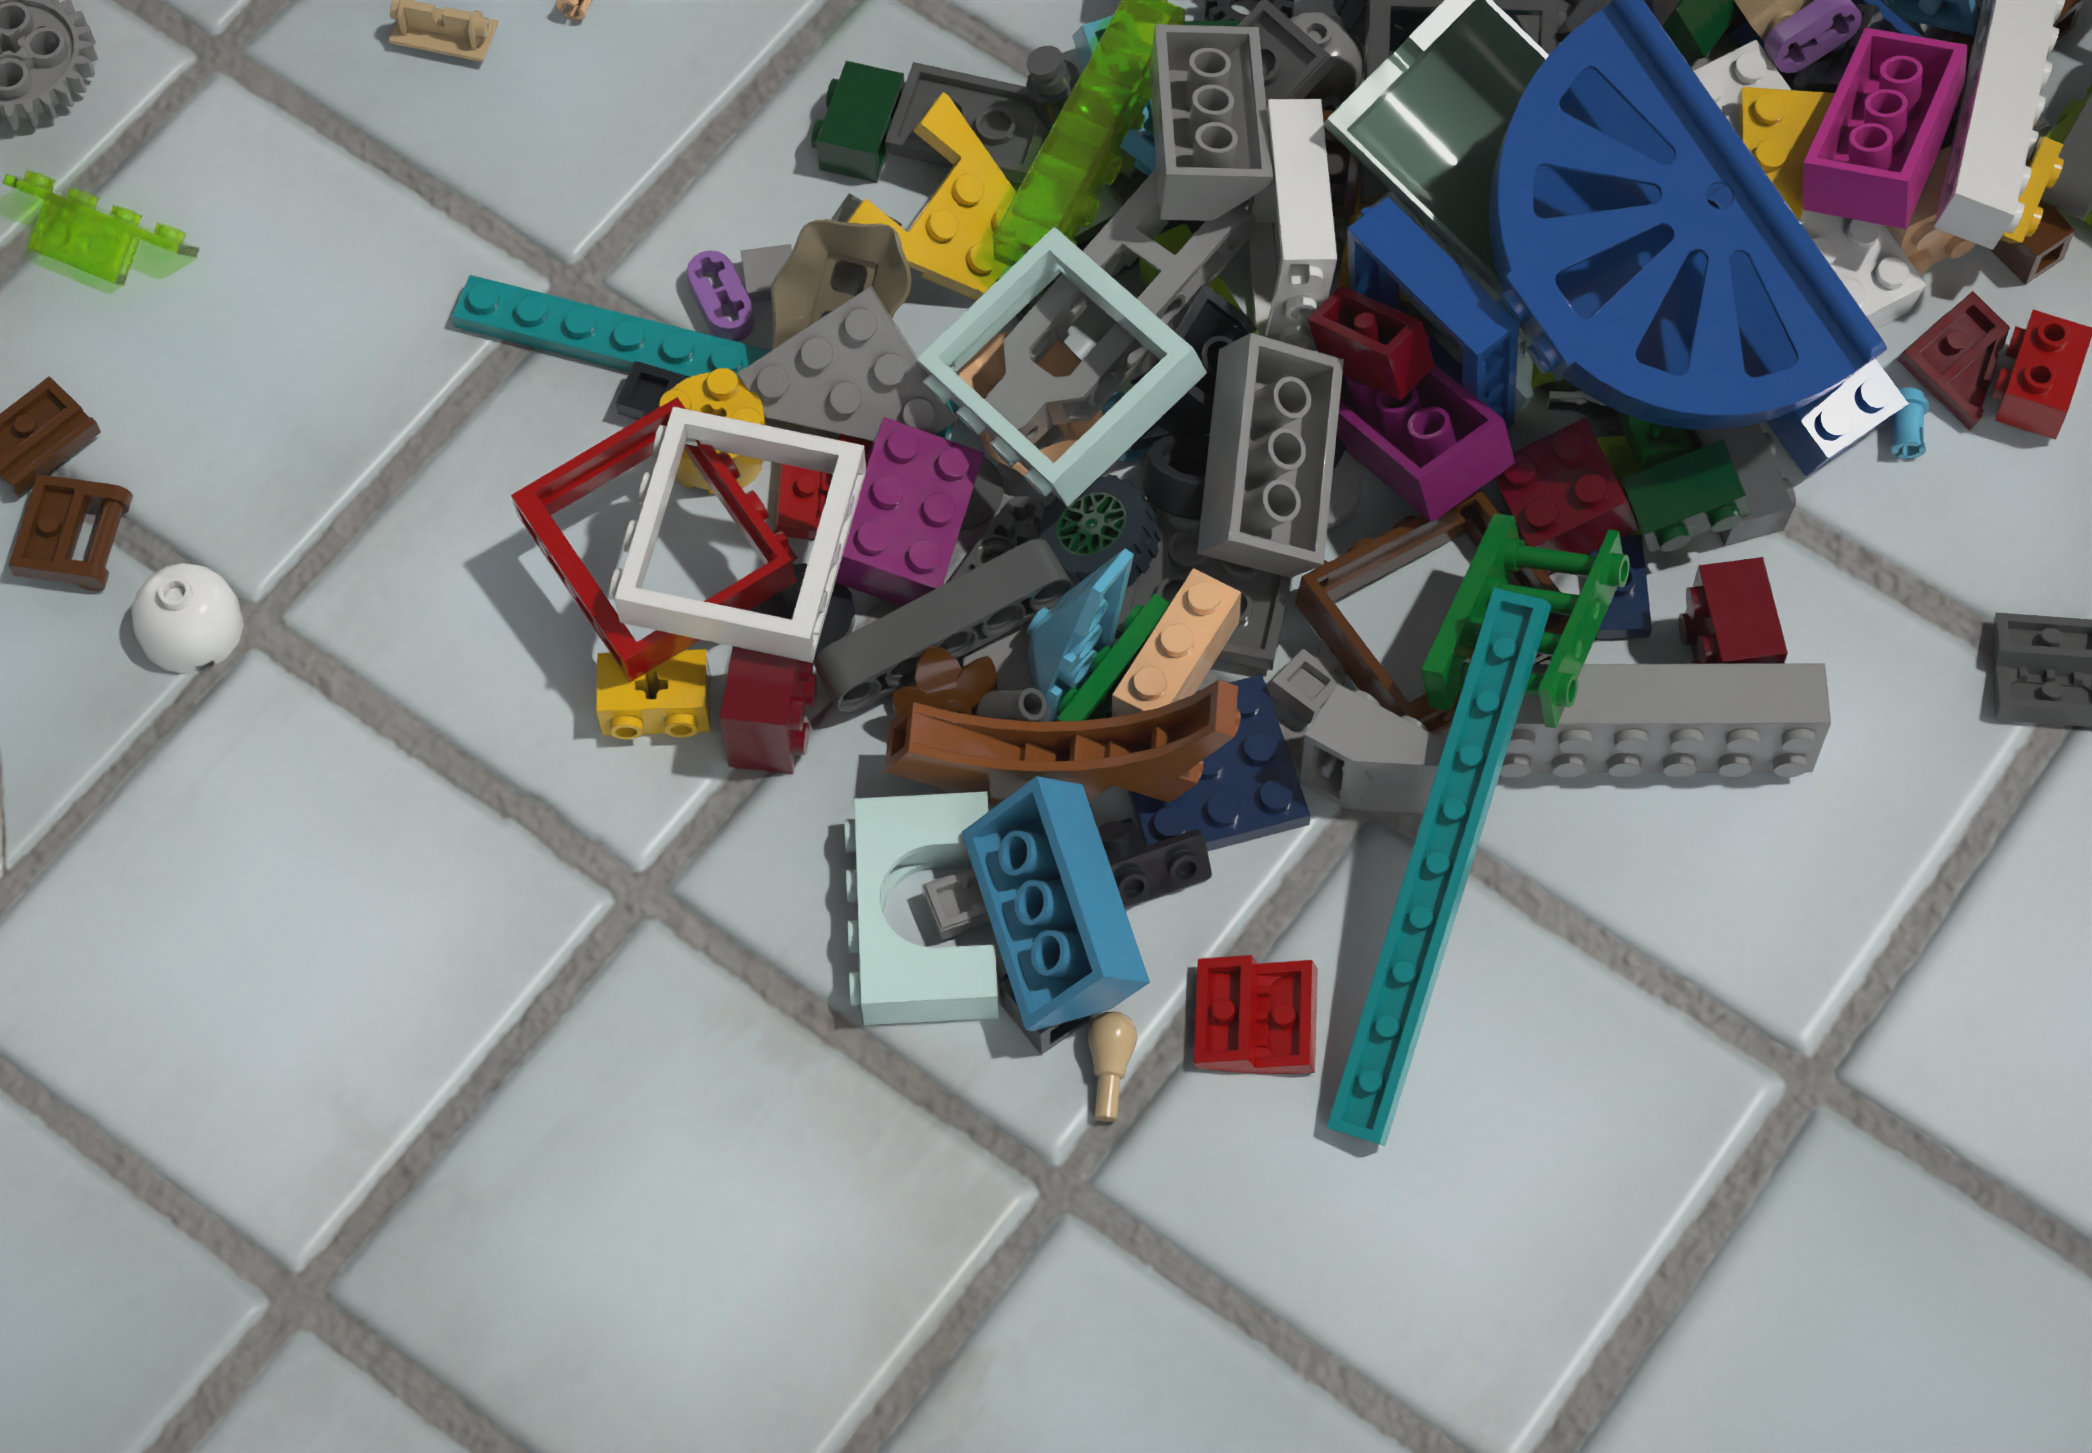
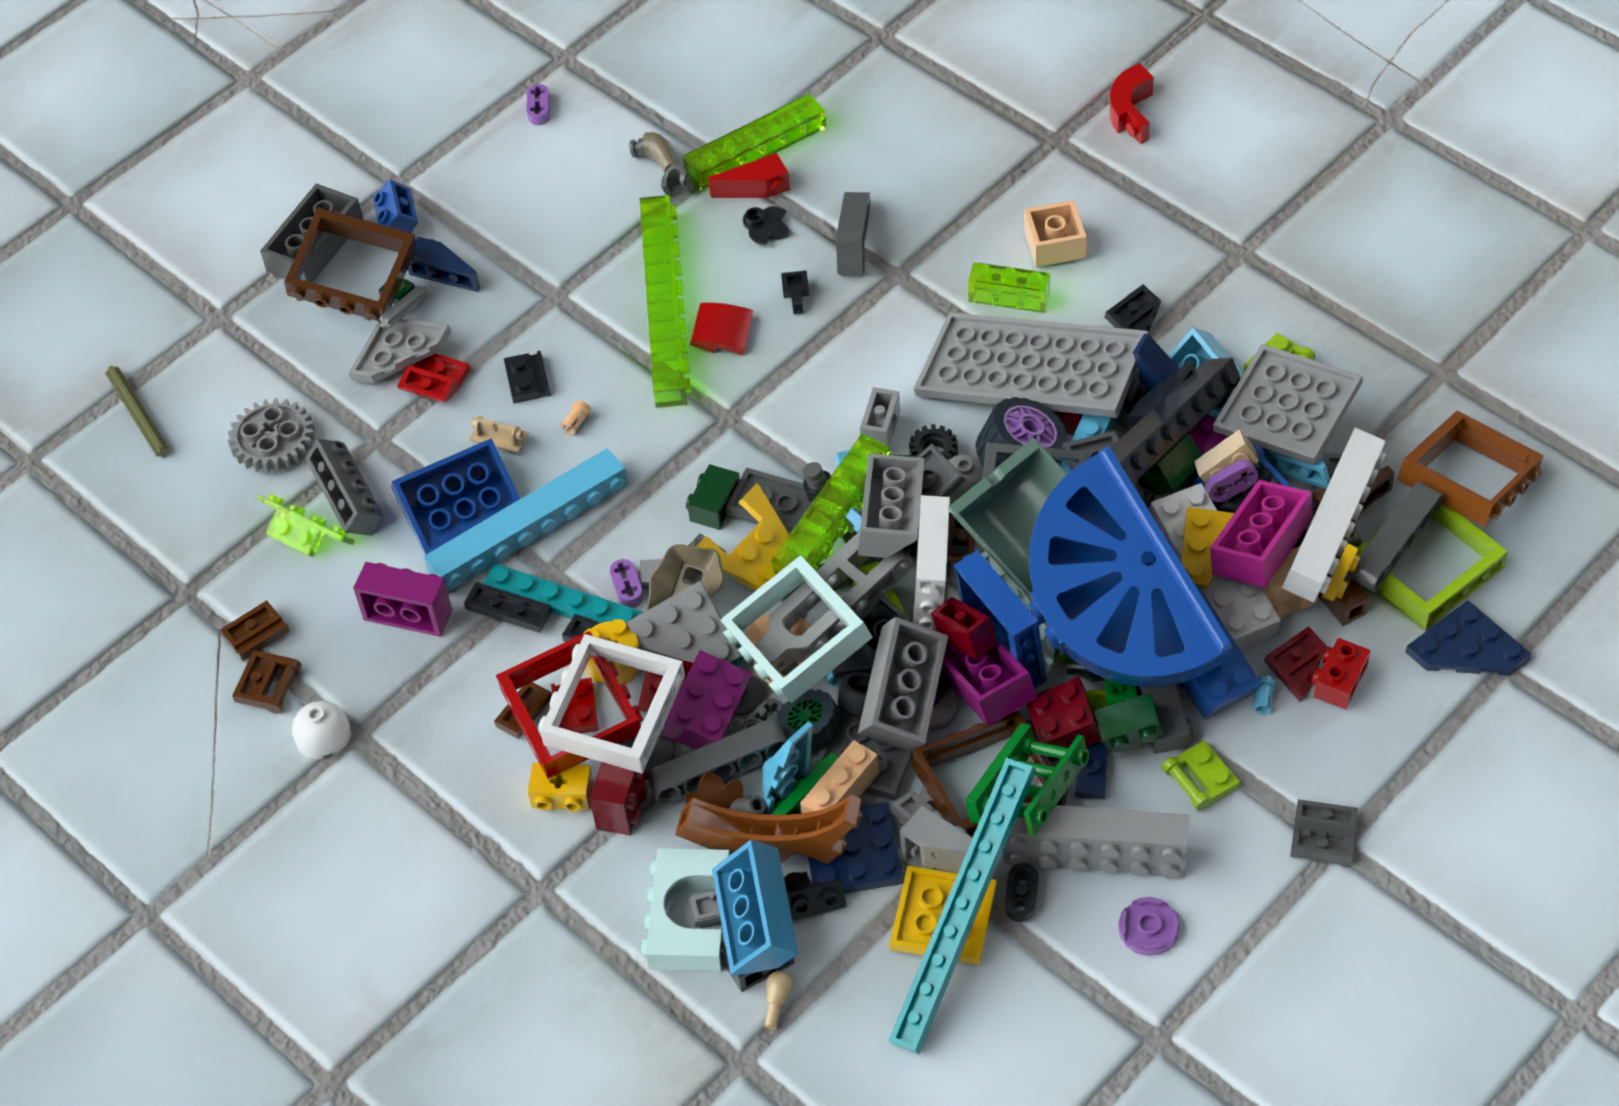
camera: 10 degrees right, 10 degrees down
(167, 149) = (344, 487): none -> dark grey brick
(309, 356) = (403, 598): none -> magenta brick
(383, 153) = (454, 494): none -> blue slope
(506, 357) = (508, 607): none -> black plate
(517, 190) = (527, 519): none -> medium azure brick
(584, 529) = (535, 700): none -> reddish brown plate
(676, 551) = (581, 711): none -> red plate
(1255, 1015) = (859, 980): red slope -> none
(1357, 875) = (920, 909): none -> yellow plate
(1529, 829) = (1021, 894): none -> black plate
(1732, 615) = (1145, 785): dark red brick -> none
(1764, 870) = (1149, 926): none -> medium lavender tile
(1829, 573) = (1207, 770): none -> lime plate

